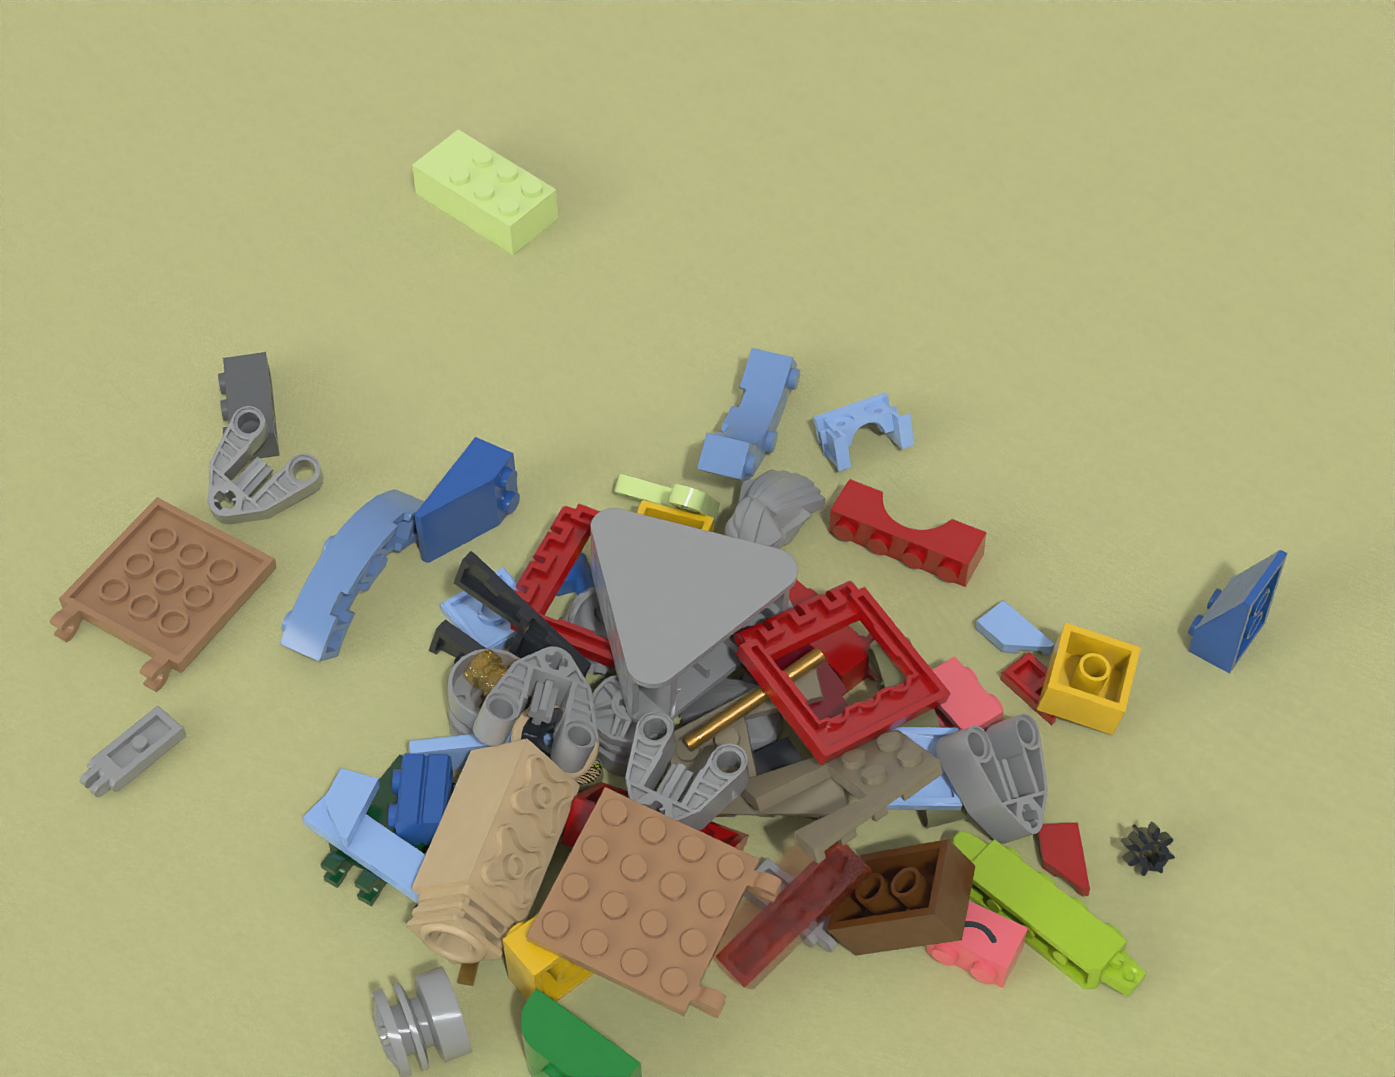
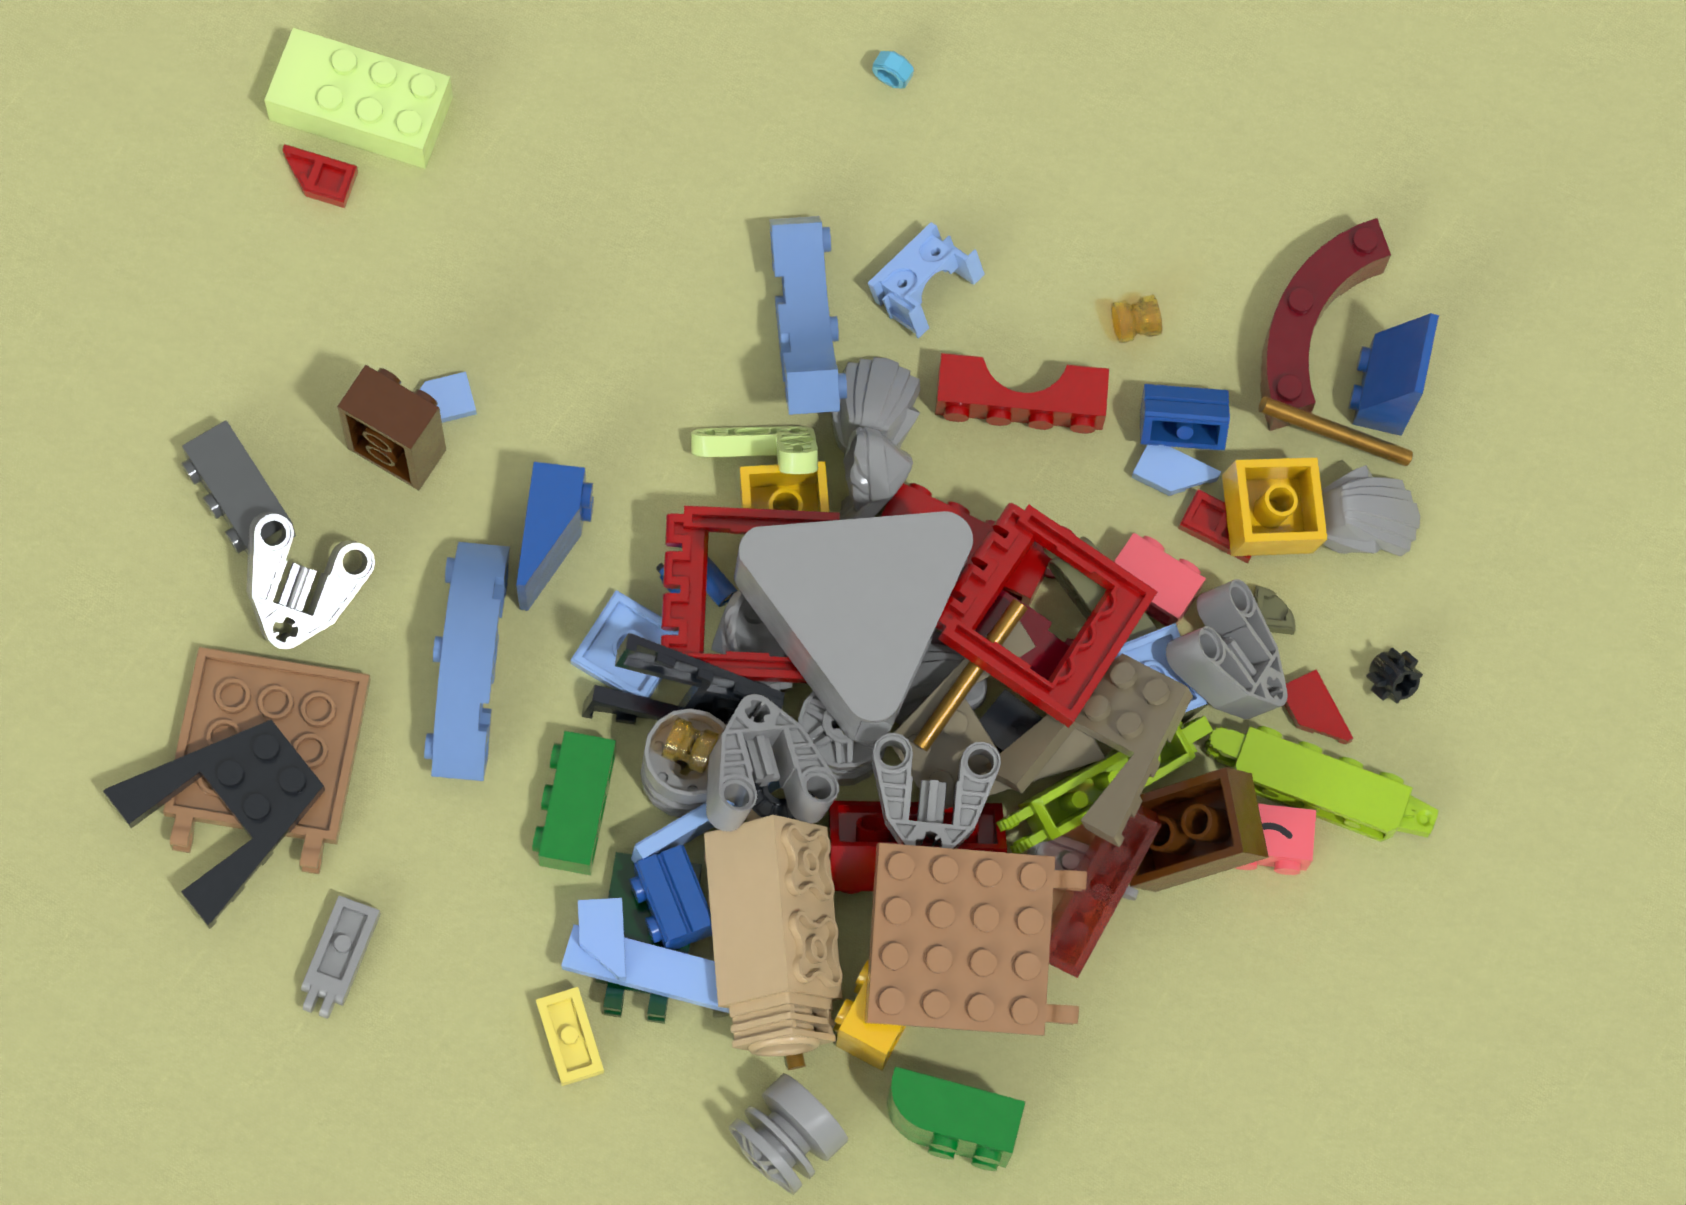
camera: 30 degrees left, 20 degrees up
(142, 603) = (258, 782): none -> black wing
(283, 882) = (569, 1036): none -> light yellow plate
(383, 387) = (392, 426): none -> reddish brown brick
(386, 706) = (575, 802): none -> green brick
(433, 235) = (321, 176): none -> red tile
(437, 400) = (452, 395): none -> light blue tile
(902, 827) = (1068, 800): none -> lime hinge
(903, 290) = (893, 69): none -> medium azure tile
(1027, 511) = (1135, 319): none -> clear yellow wheel
(1037, 590) = (1184, 417): none -> blue brick
(1058, 767) = (1275, 611): none -> olive tile
(1168, 640) = (1335, 431): none -> pearl gold bar
(1172, 715) = (1369, 514): none -> light grey hair
(1205, 527) = (1319, 281): none -> dark red brick

